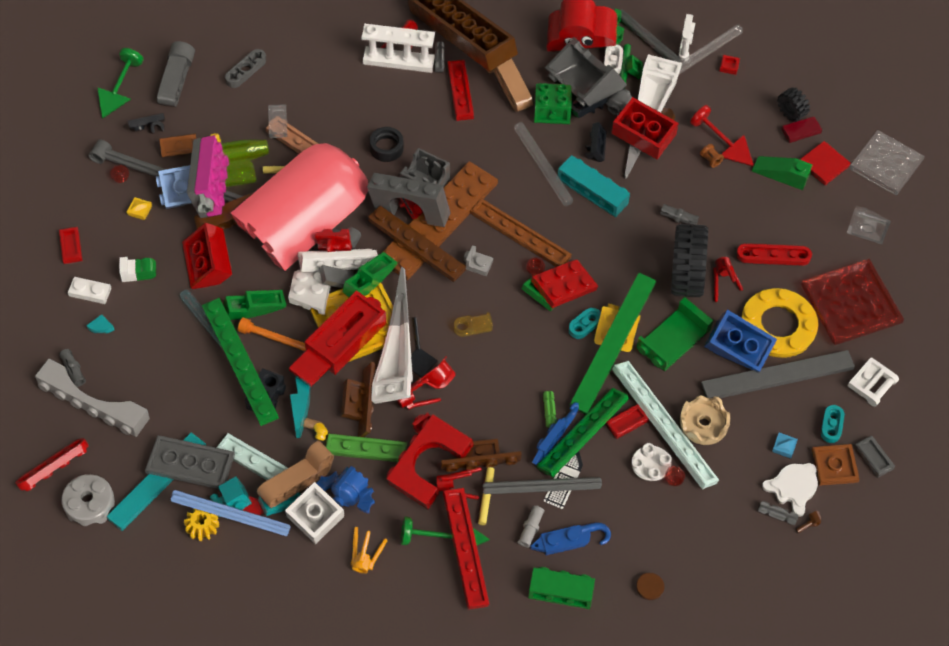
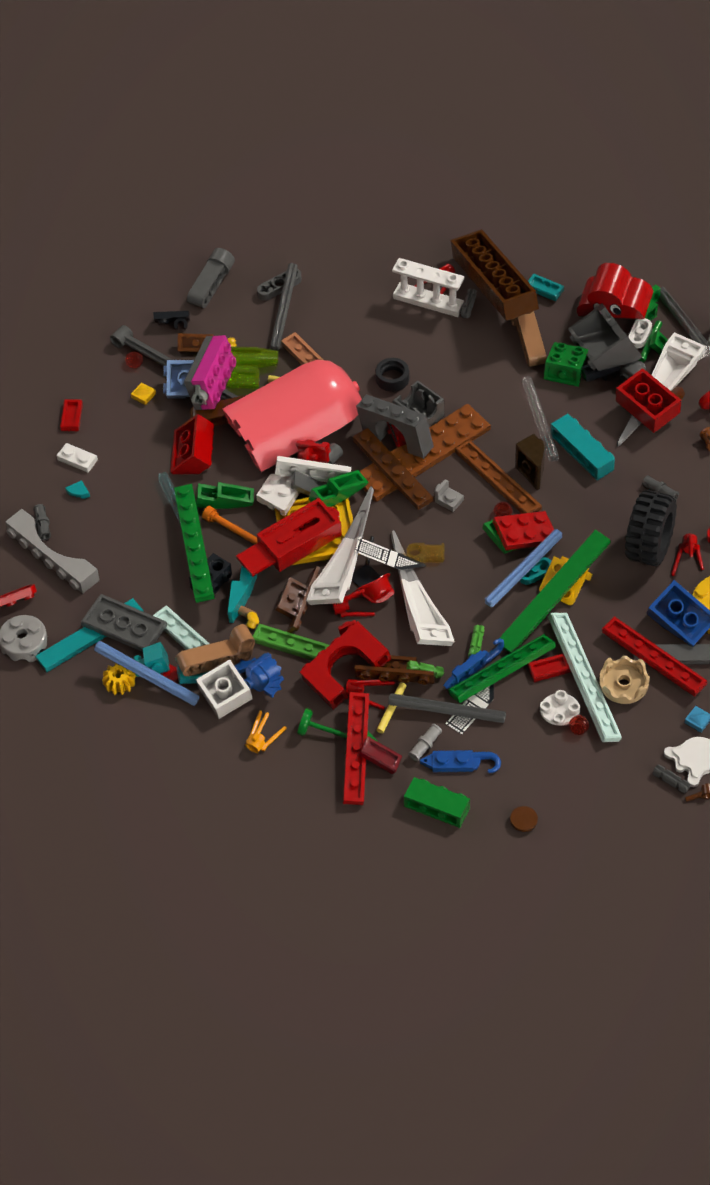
camera: 20 degrees right, 5 degrees down
(110, 100) = (145, 293): green piece -> none
(137, 269) = (124, 446): leg -> none
(258, 92) = (283, 307): none -> dark grey axle
(277, 121) = (293, 335): clear tile -> none
(436, 336) = (386, 556): none -> sticker
(460, 90) = (480, 337): red tile -> none
(491, 392) = (422, 614): none -> white plate
(491, 550) = (380, 755): none -> dark red tile
(509, 447) = (413, 665): none -> bright green axle
(514, 28) = (546, 287): none -> teal plate
(550, 209) = (530, 459): none -> dark brown slope
(575, 324) = (523, 567): none -> medium blue axle
(598, 144) = (599, 408): black plate -> none
(675, 335) = (621, 598): green panel -> none
(726, 390) = (654, 656): none -> red tile

